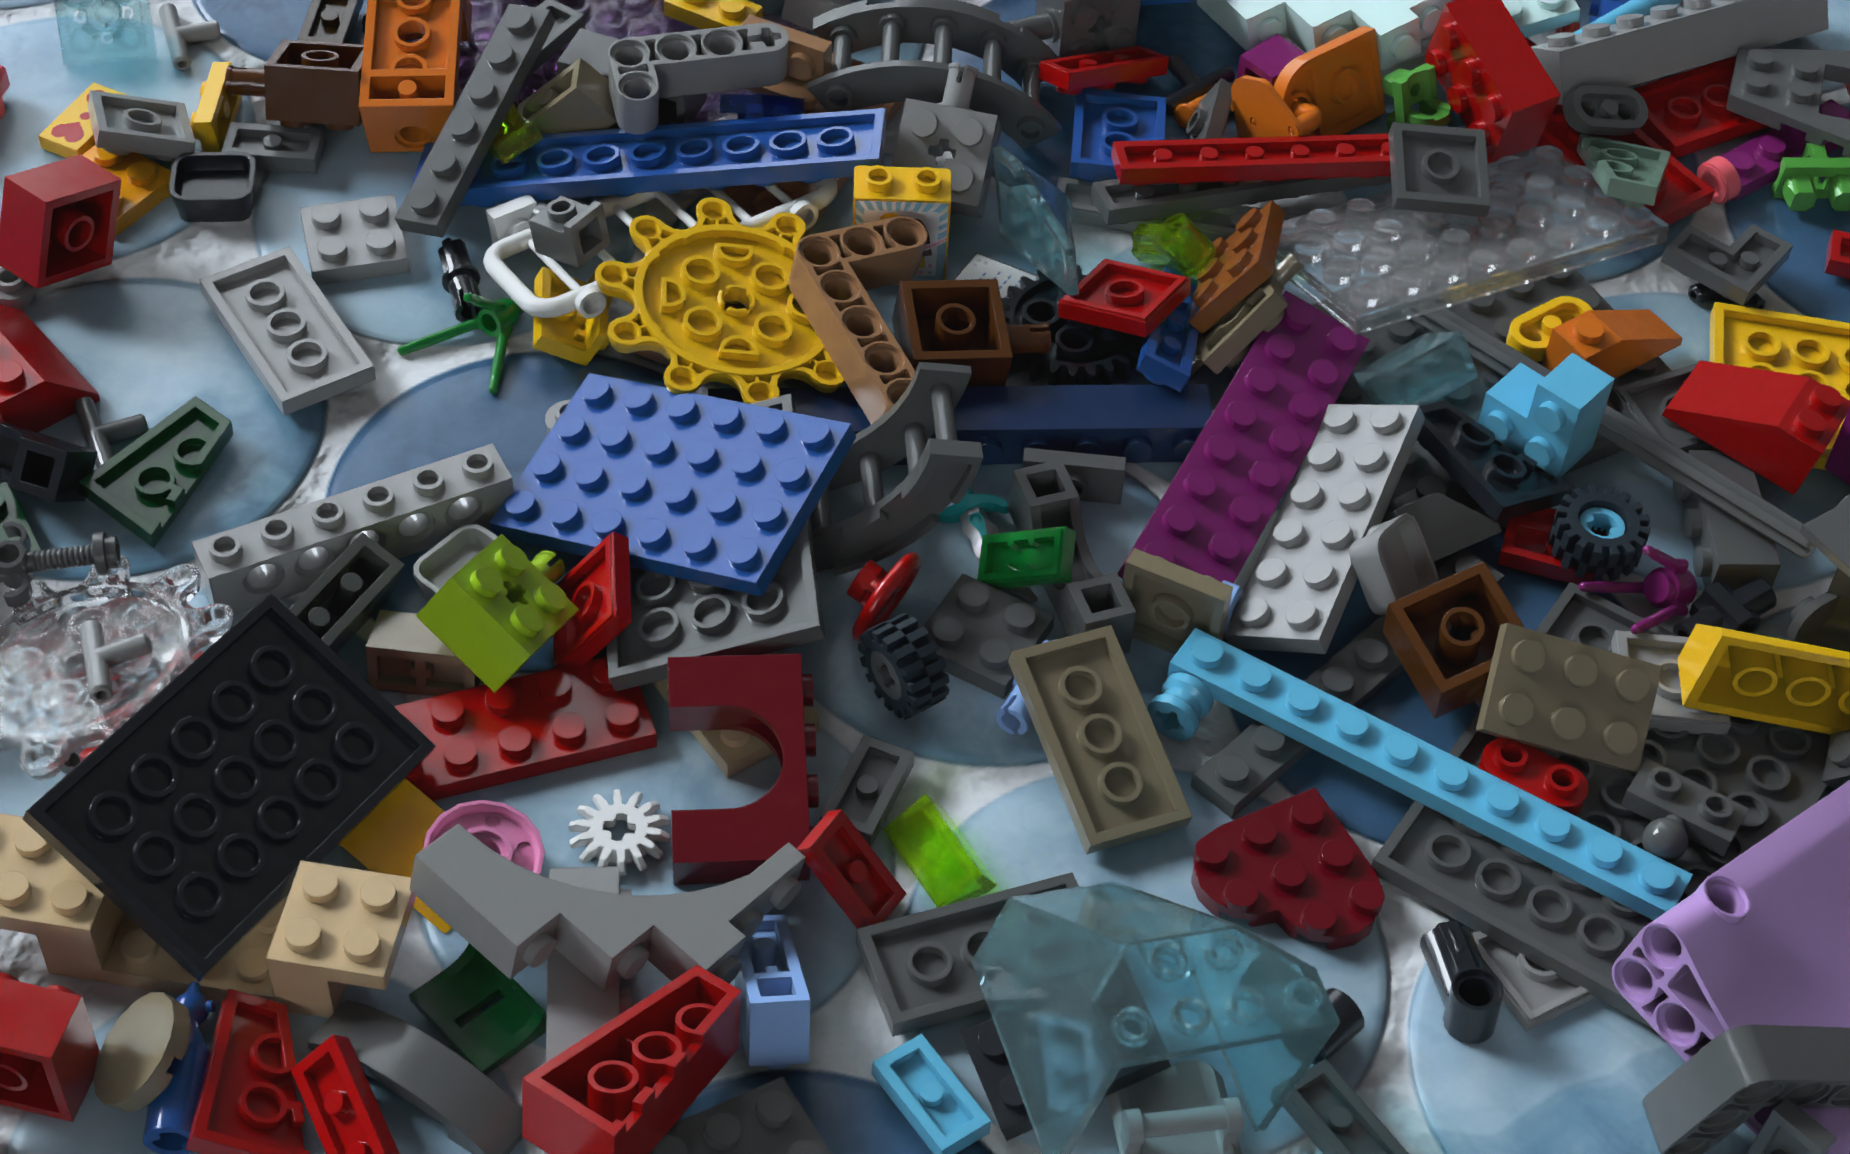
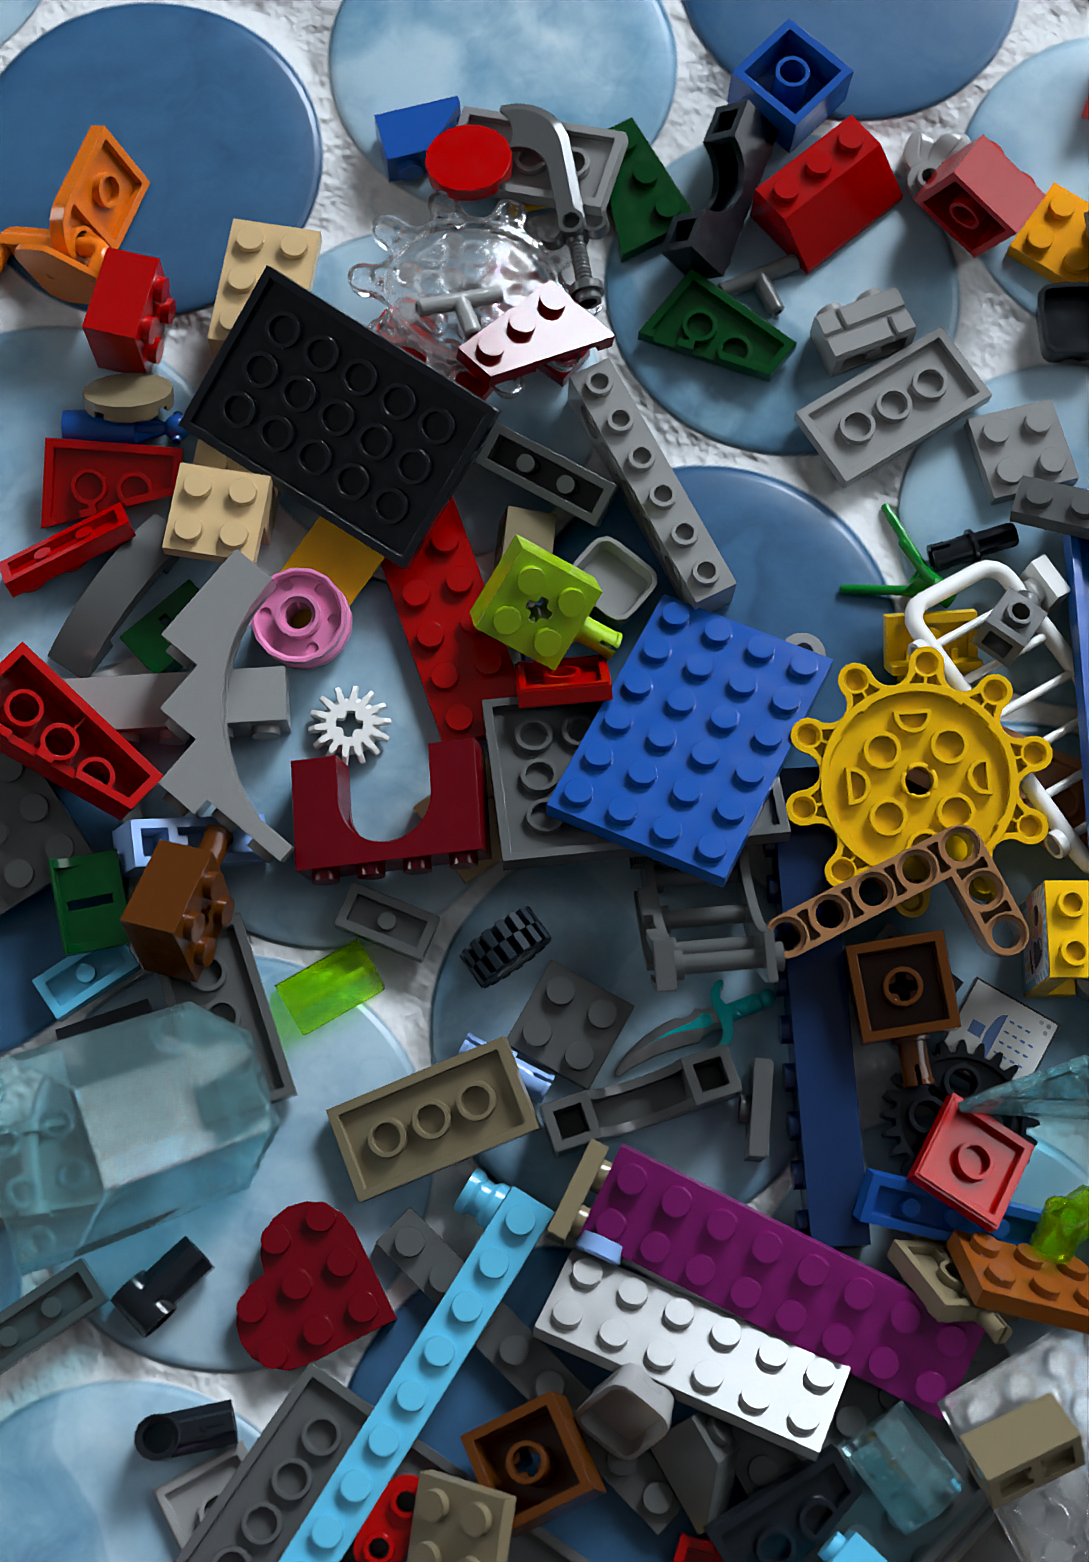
camera: 90 degrees right, 25 degrees up
(156, 594) = (532, 333): none -> wing
(190, 345) = (862, 330): none -> light grey brick
(851, 870) = (286, 904): red plate -> none
(861, 949) = (181, 906): none -> reddish brown brick
(875, 1061) = (84, 879): none -> dark green piece
(881, 591) = (590, 927): red piece -> none
(1027, 557) = (635, 1059): green plate -> none
(1396, 260) = (1023, 1450): none -> dark tan hinge

